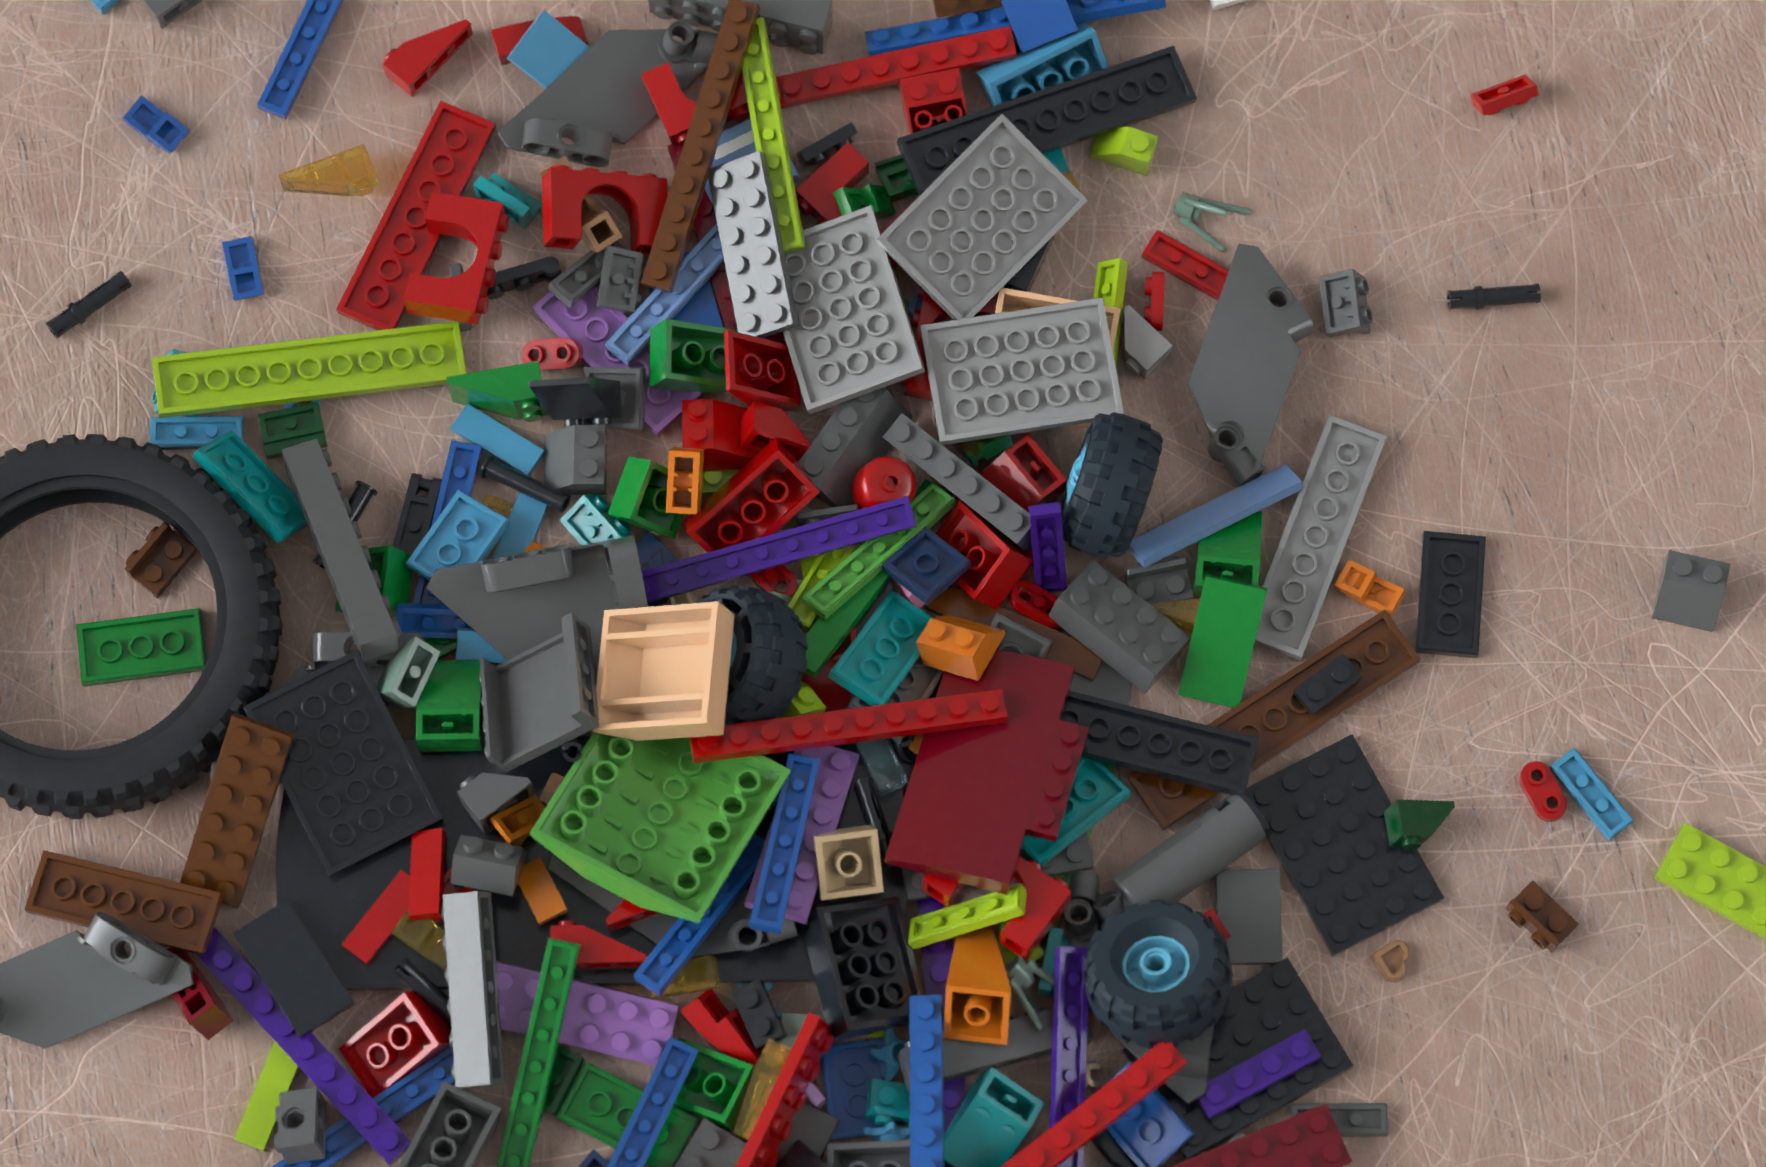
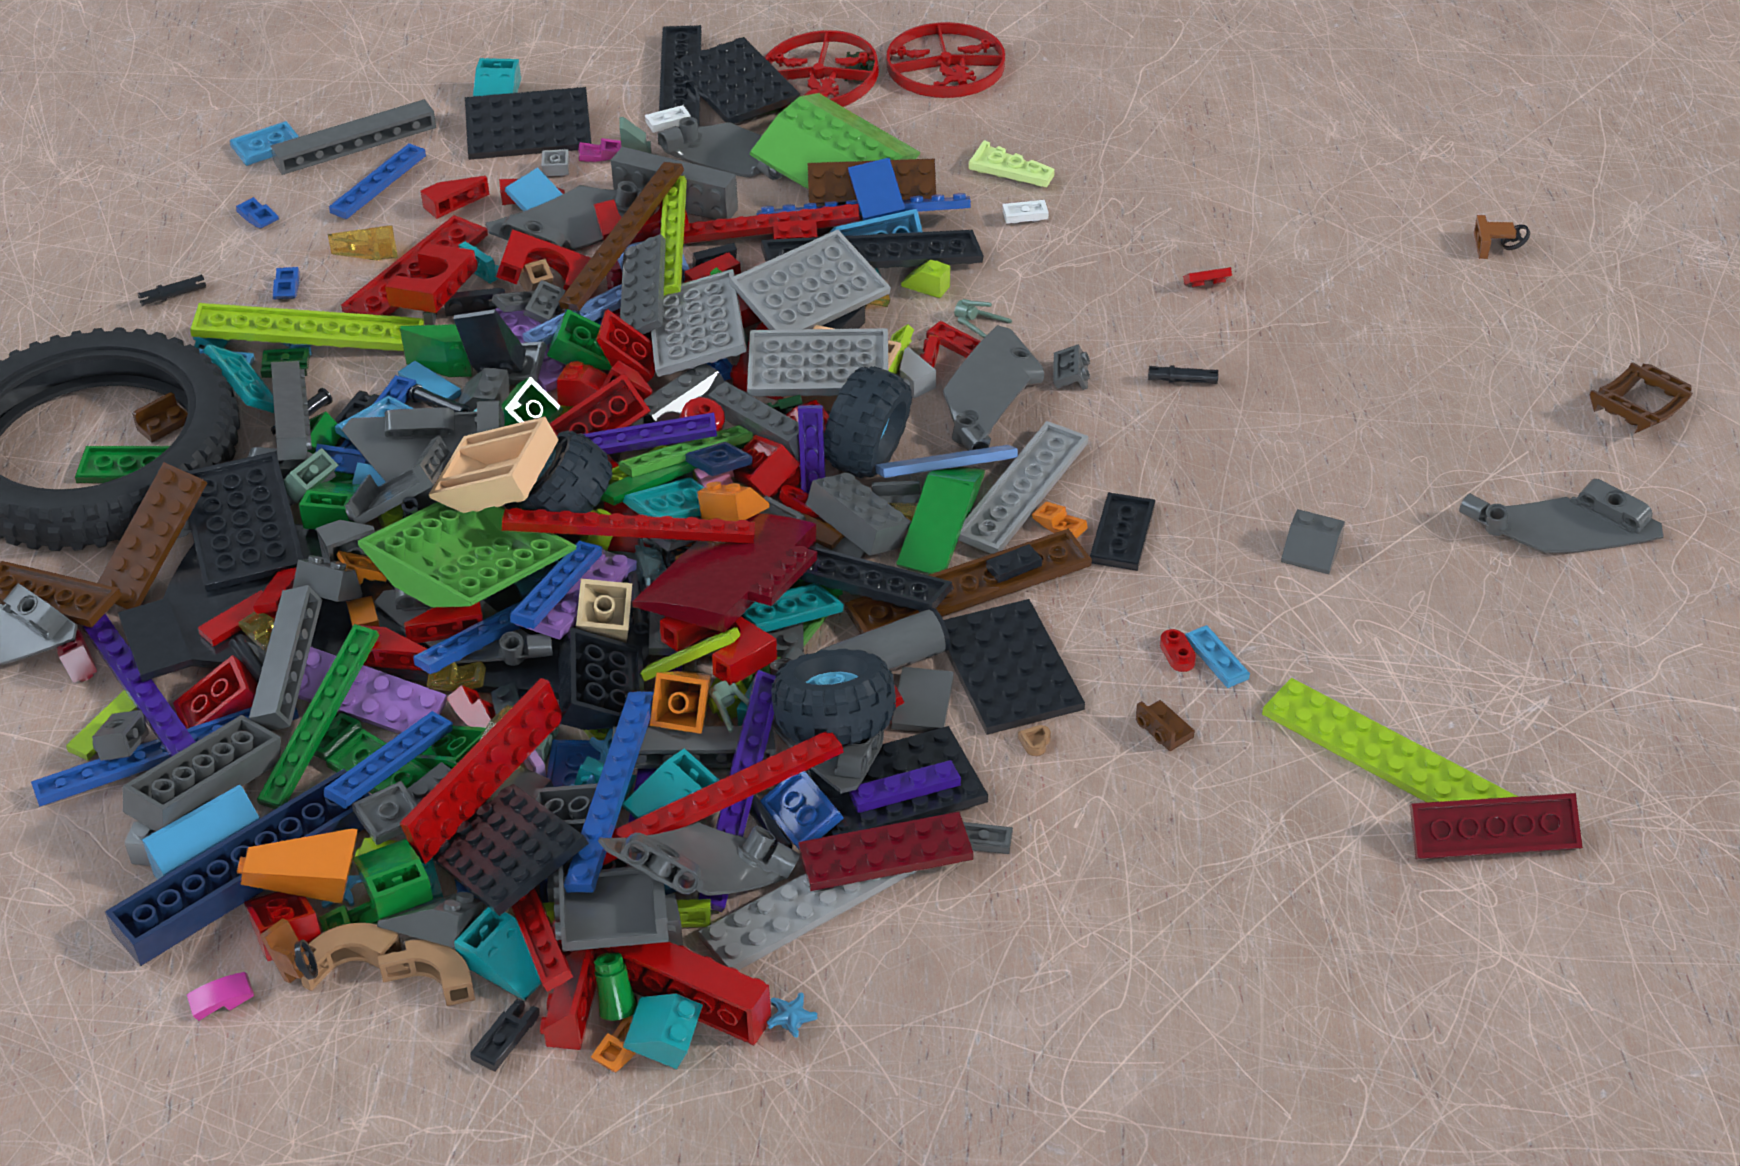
camera: 10 degrees right, 30 degrees down
(684, 480) = (552, 391): orange brick -> none
(1414, 821) = (1070, 647): dark green slope -> none

